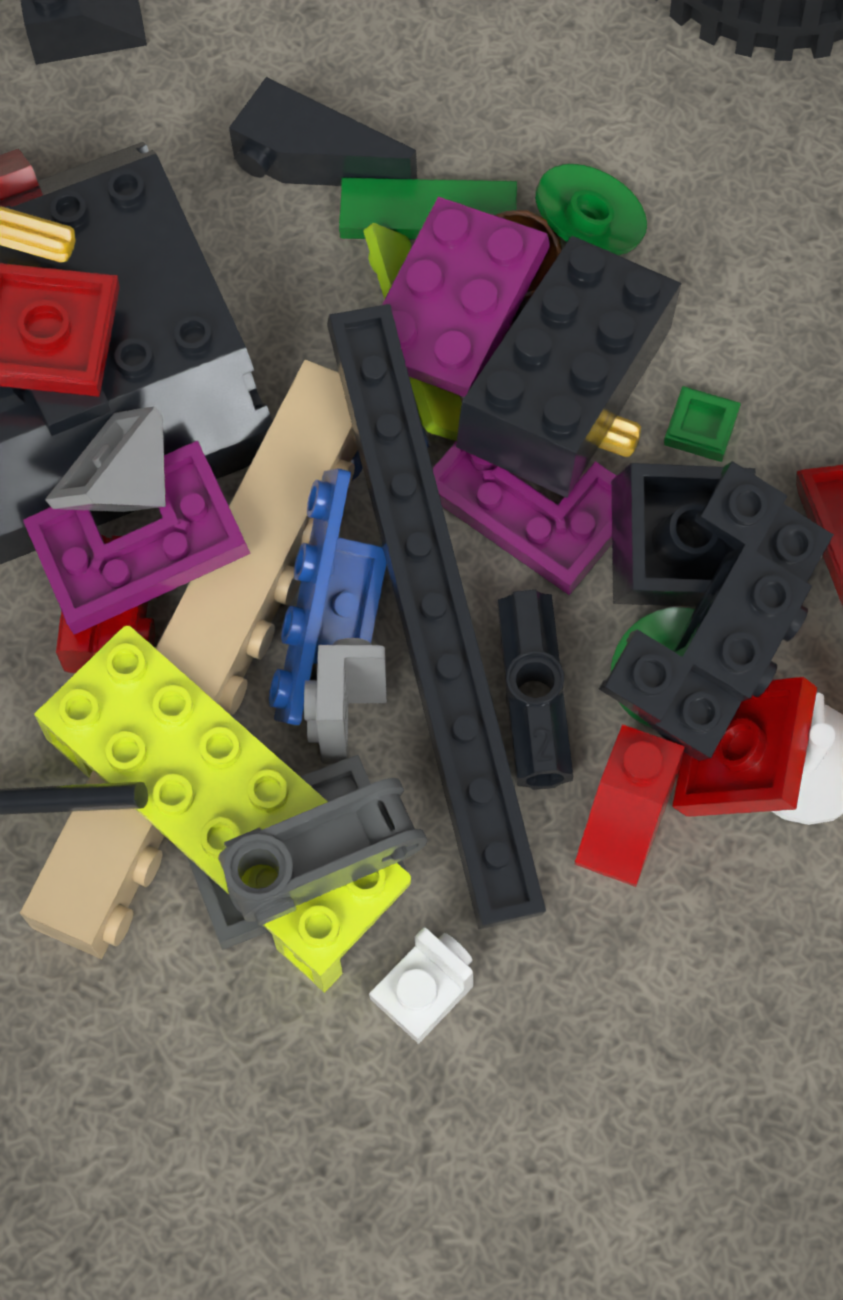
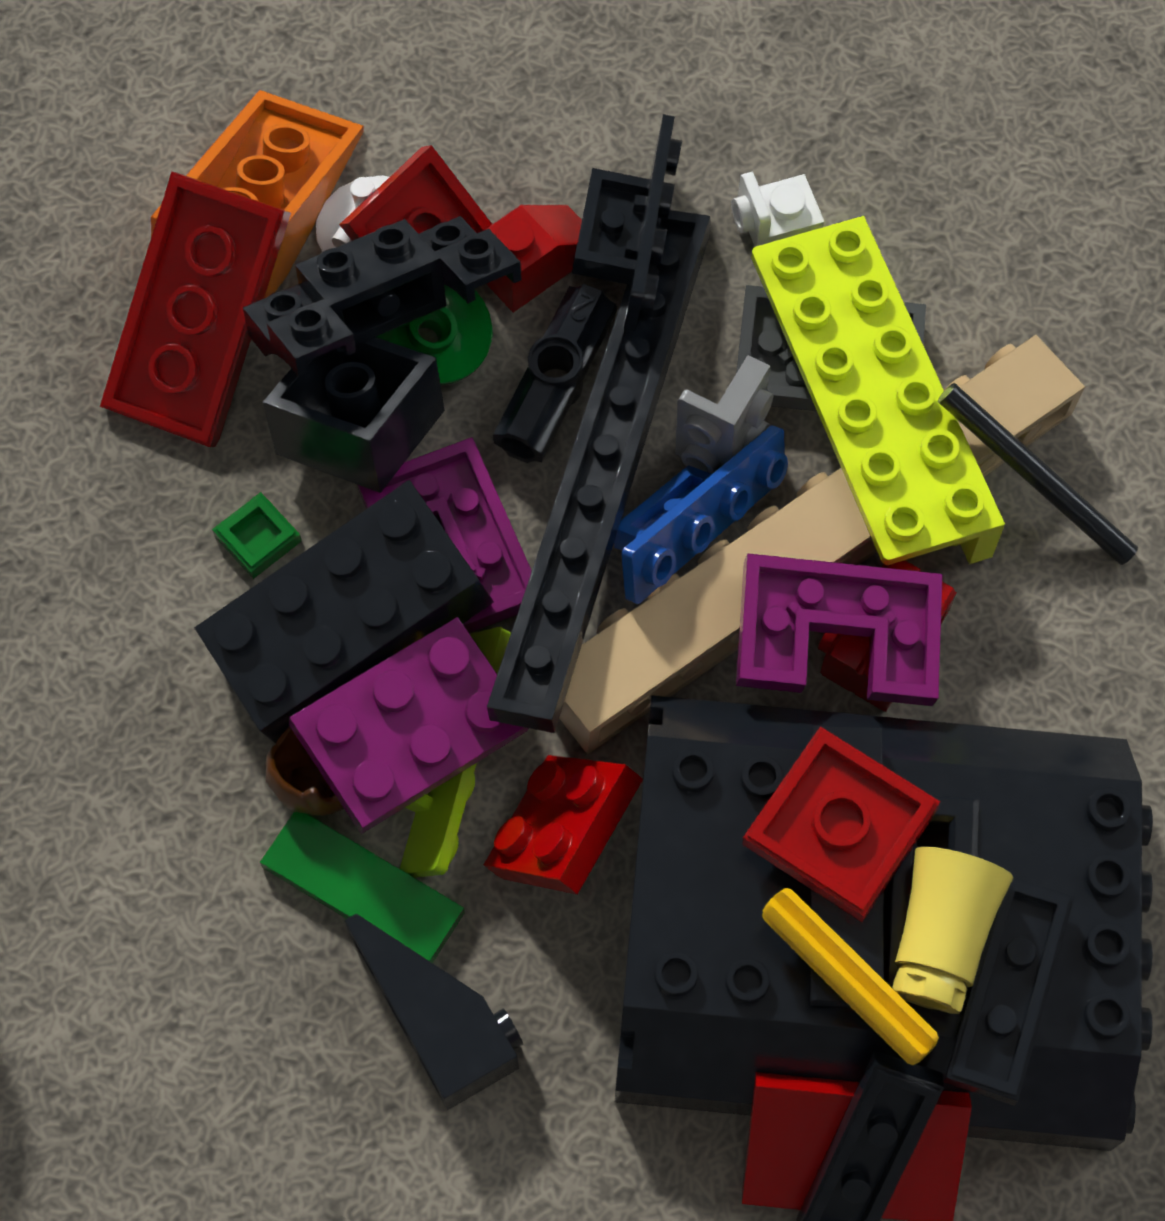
camera: 155 degrees left, 0 degrees up
(118, 468) = (838, 668): light grey slope -> none
(287, 298) = (562, 822): none -> red plate
(321, 850) = (821, 269): dark grey piece -> none
(558, 848) = (620, 225): none -> black bracket
(591, 207) = (195, 771): green dish -> none

